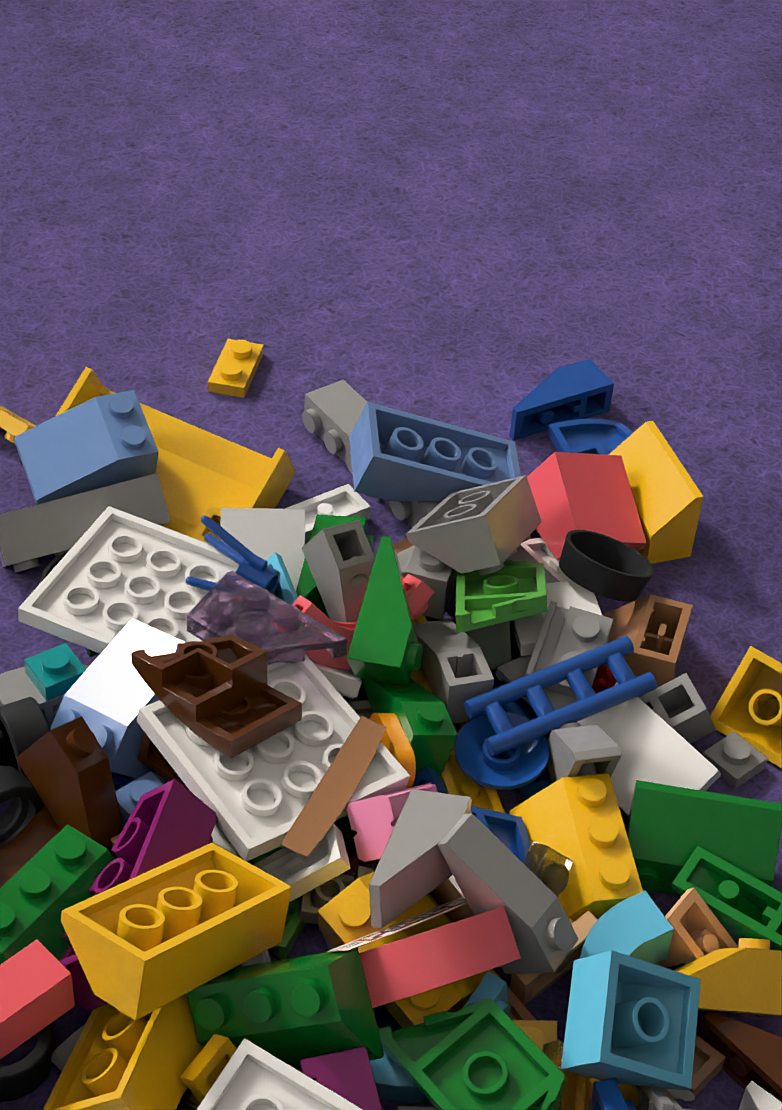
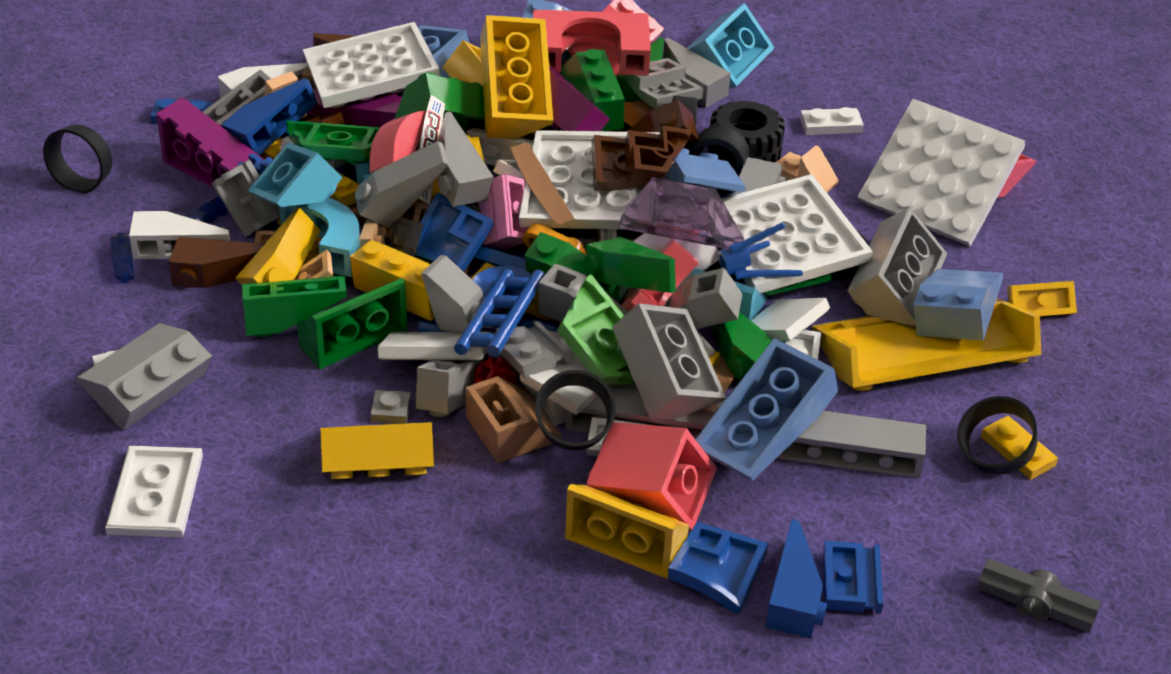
camera: 135 degrees right, 0 degrees up
(54, 670) = (755, 175): teal plate -> none
(271, 341) = (989, 407): none -> black tyre
(399, 294) = (1039, 595): none -> dark grey piece
(505, 381) = (852, 577): none -> blue plate

